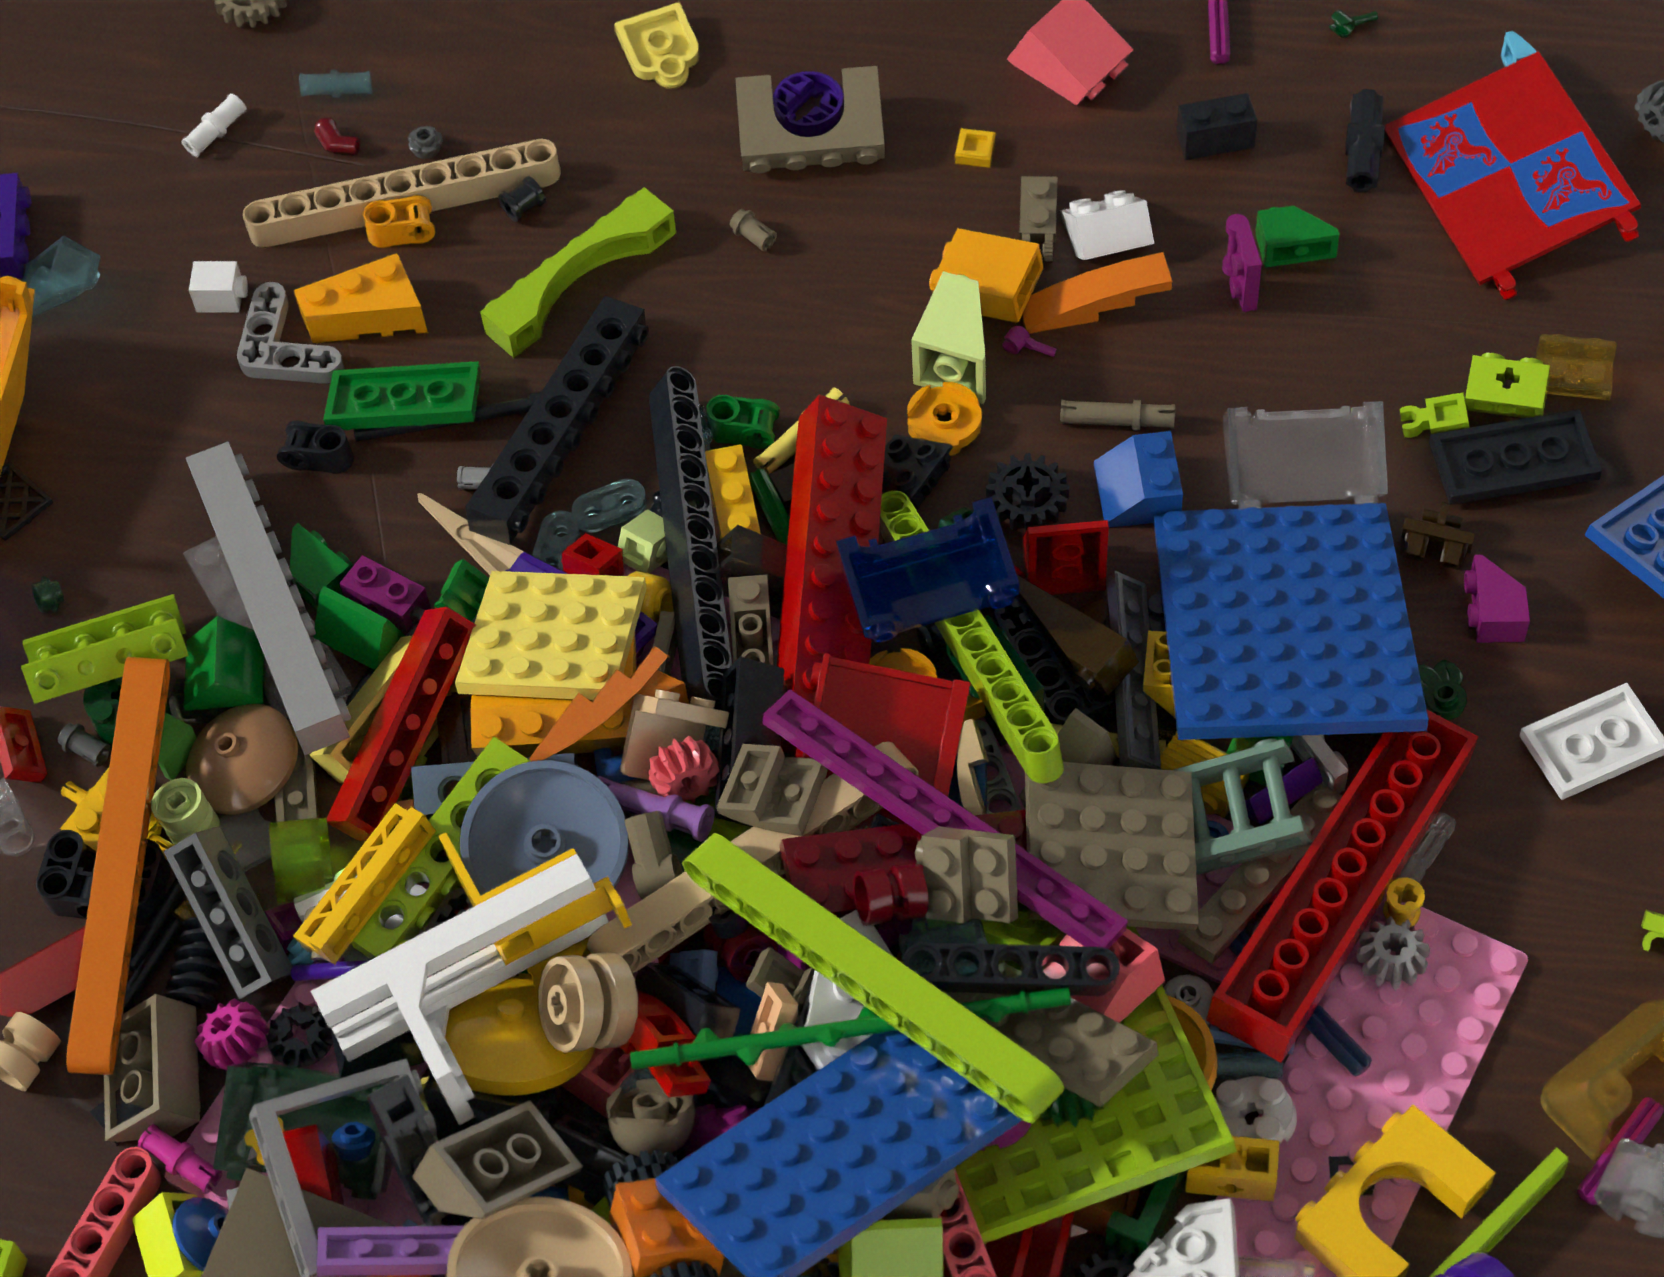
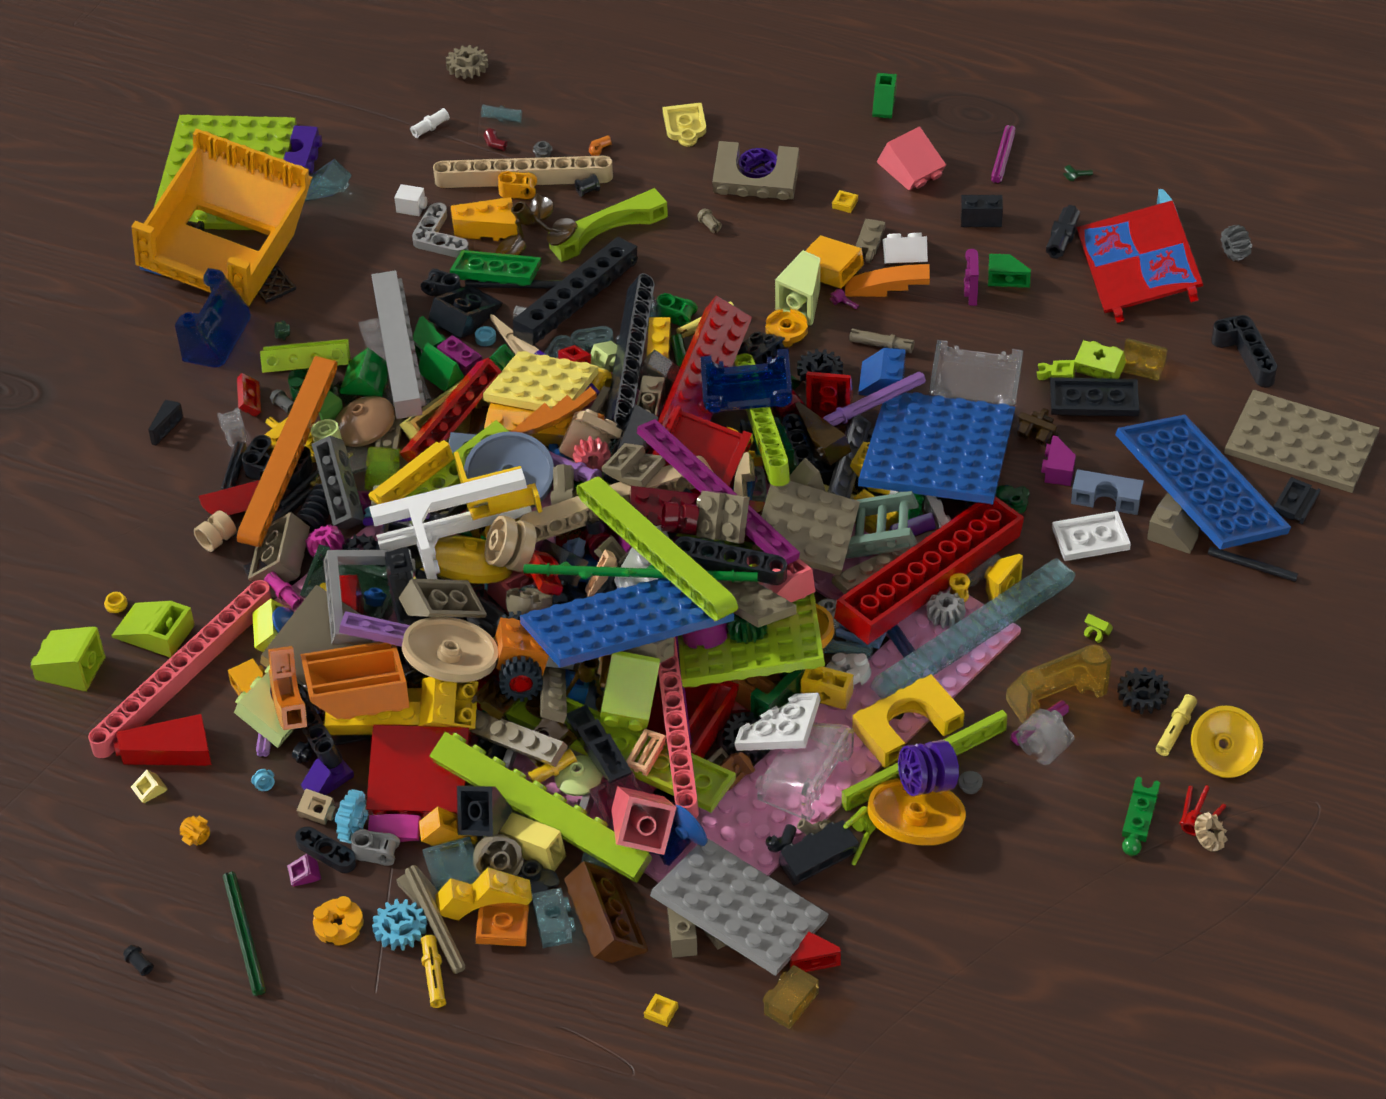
camera: 10 degrees right, 10 degrees down
(24, 902) = (234, 466): none -> black axle
(366, 493) = (463, 310): none -> black slope
(417, 535) = (485, 336): none -> medium azure tile
(448, 265) = (538, 210): none -> dark brown plant
(518, 116) = (597, 145): none -> orange arm
(1099, 585) = (843, 414): none -> medium lavender axle
(1450, 990) = (975, 628): none -> clear light blue beam
(1470, 868) = (1003, 575): none -> yellow slope
(1628, 640) = (1092, 485): none -> sand blue arch

